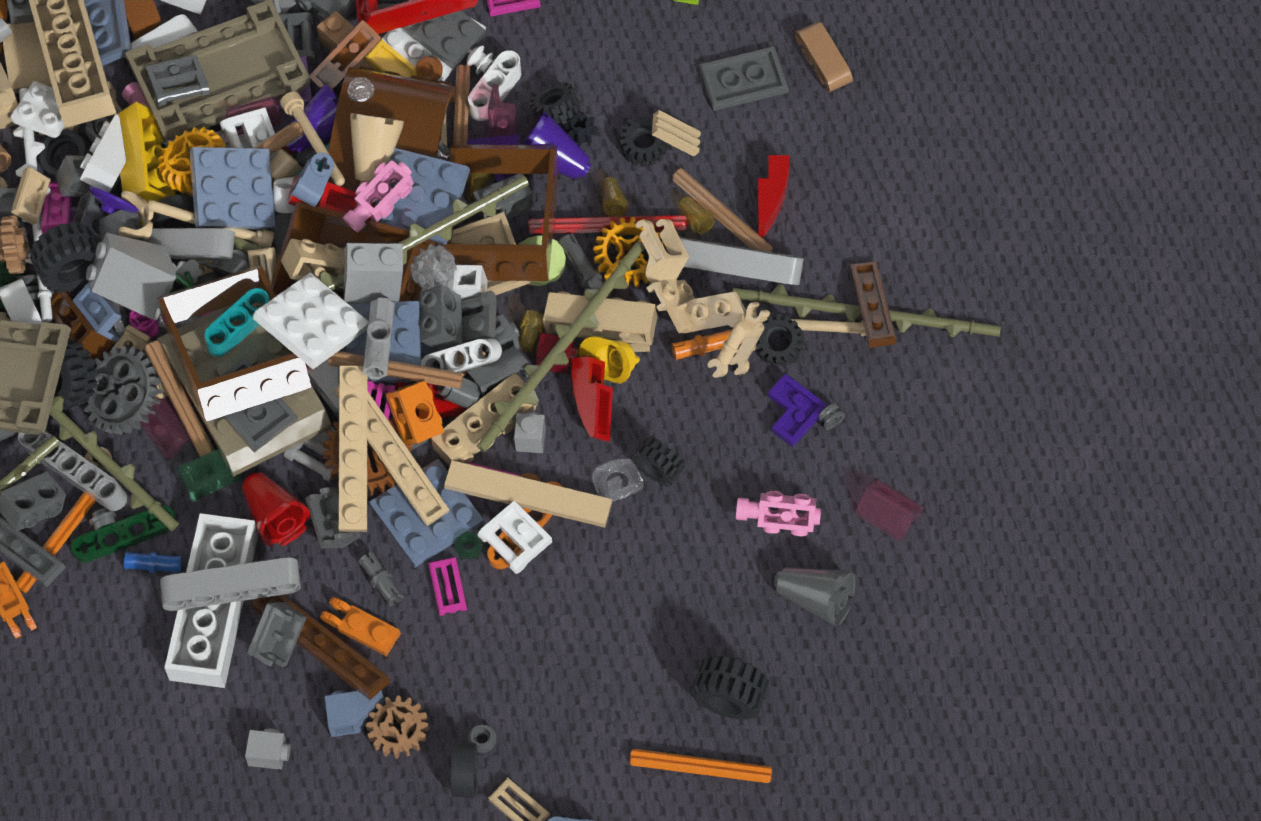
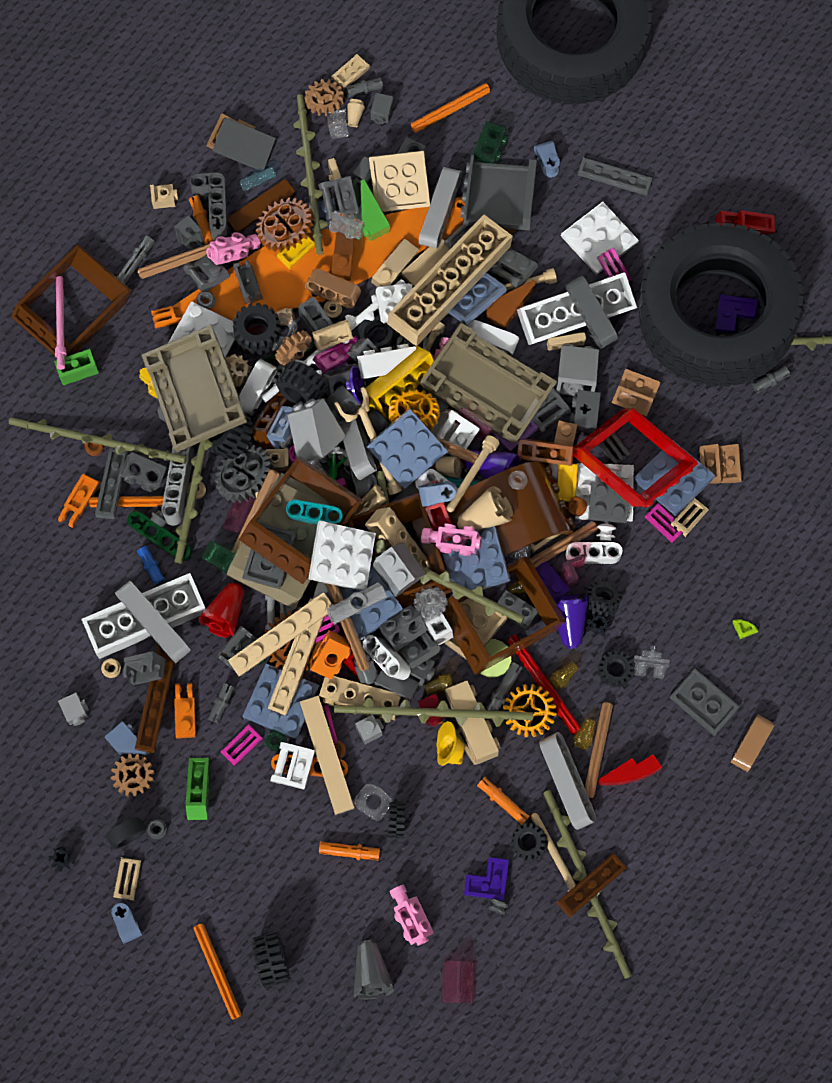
camera: 55 degrees right, 10 degrees up
(174, 74) = (465, 361): dark grey plate -> none
(243, 672) = (109, 662): none -> tan plate
(467, 661) = (197, 789): none -> bright green slope
(592, 396) = (416, 752): red slope -> none
(661, 98) = (641, 663): none -> clear hips
(665, 529) = (358, 852): none -> orange pin
(680, 136) = (637, 698): tan tile -> none
(700, 313) = (515, 758): tan piece -> none

